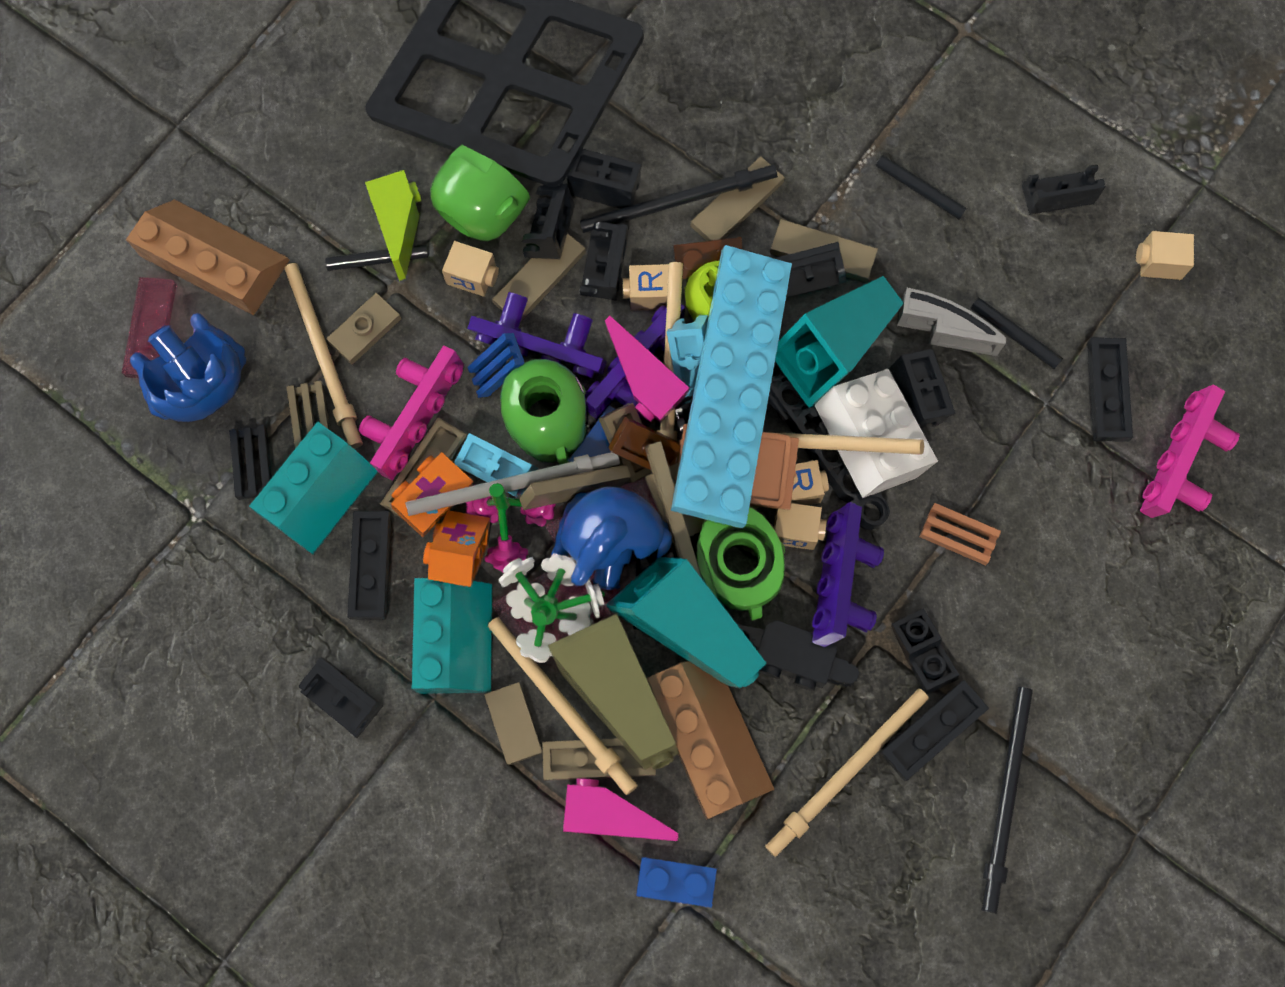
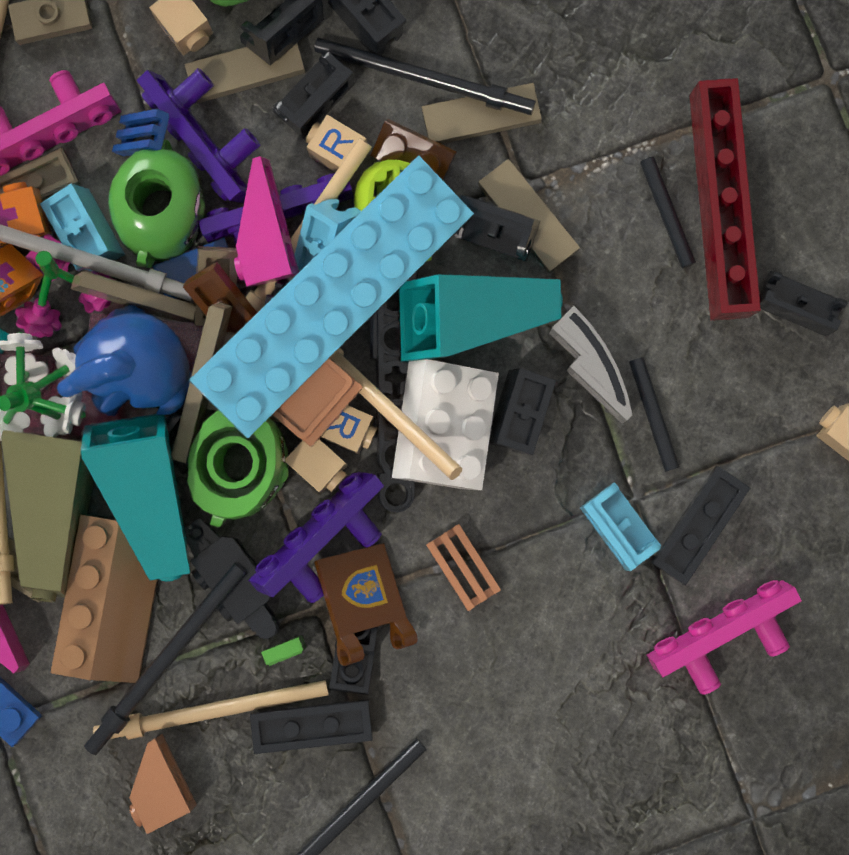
camera: 35 degrees right, 10 degrees up
(781, 824) = (118, 716): none -> black bar
(852, 860) = (159, 788): none -> nougat slope
(873, 684) = (284, 650): none -> bright green tile
(908, 605) = (362, 596): none -> reddish brown flag
(959, 150) = (724, 199): none -> dark red brick
(1053, 430) = (620, 527): none -> medium azure hinge

